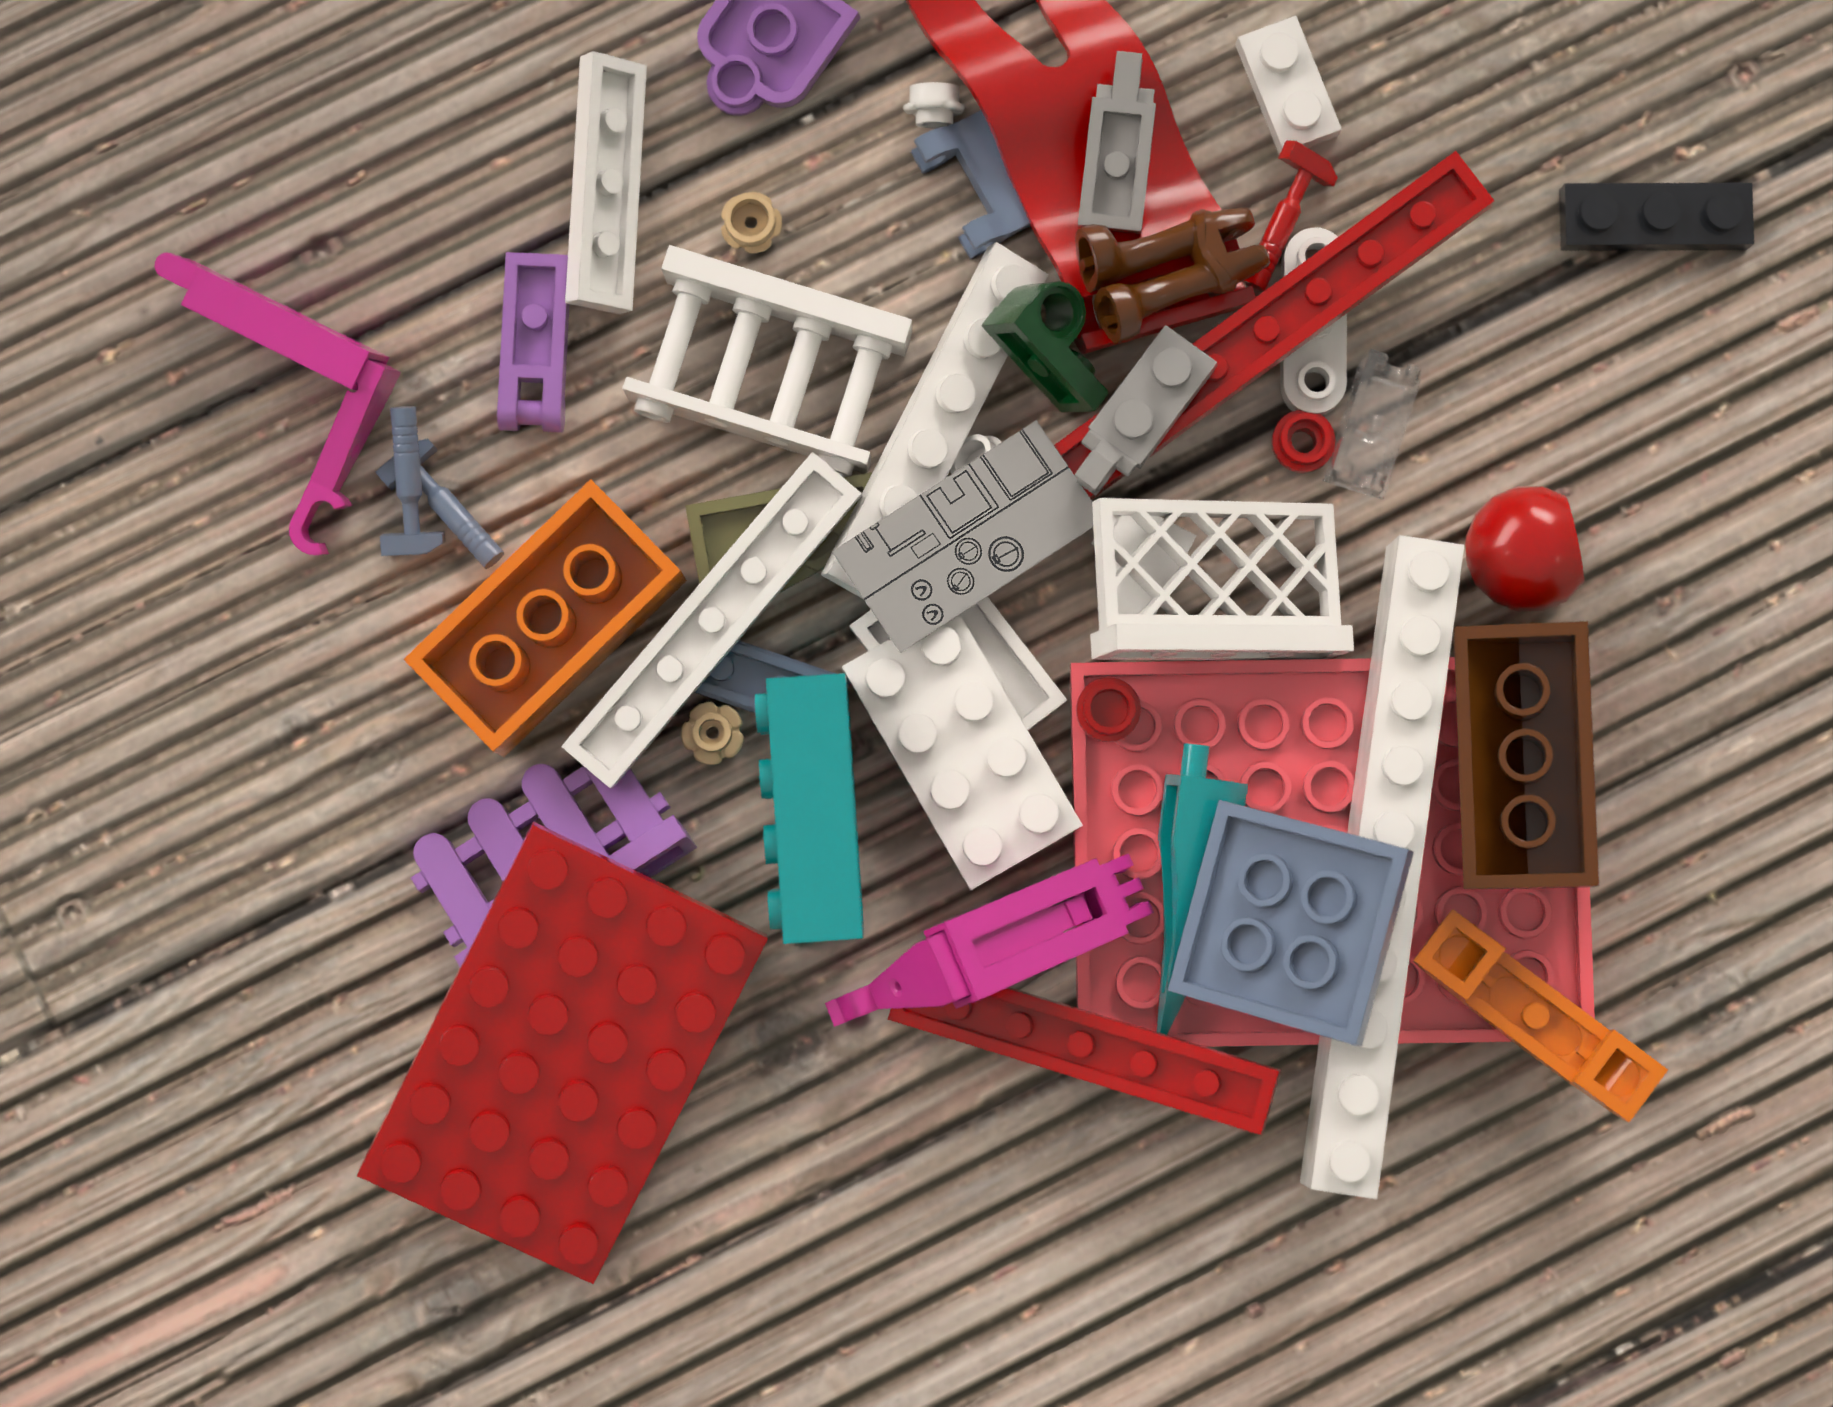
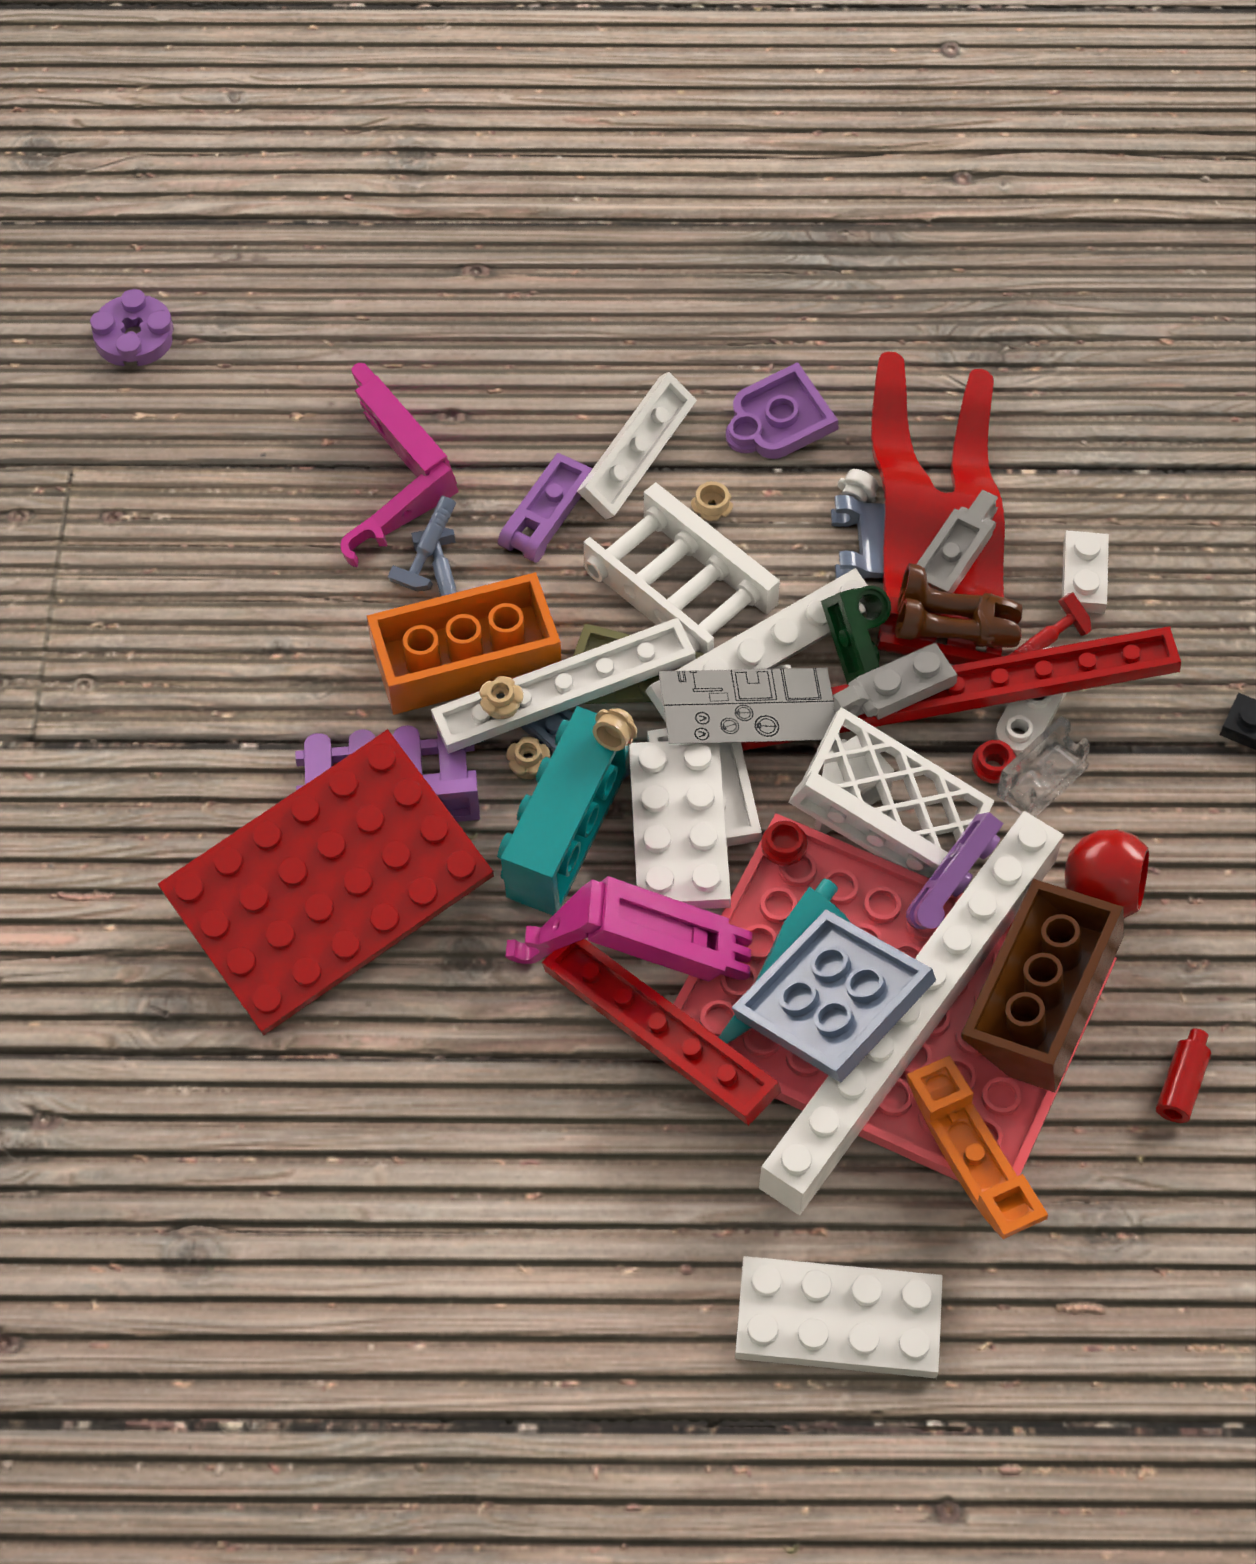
camera: 30 degrees right, 25 degrees down
(629, 689) = (503, 707): none -> tan plate
(838, 698) = (614, 729): none -> tan plate
(1347, 659) = (953, 872): none -> medium lavender plate
(1462, 1282) = (839, 1317): none -> white plate
(1725, 769) = (1184, 1077): none -> red cylinder

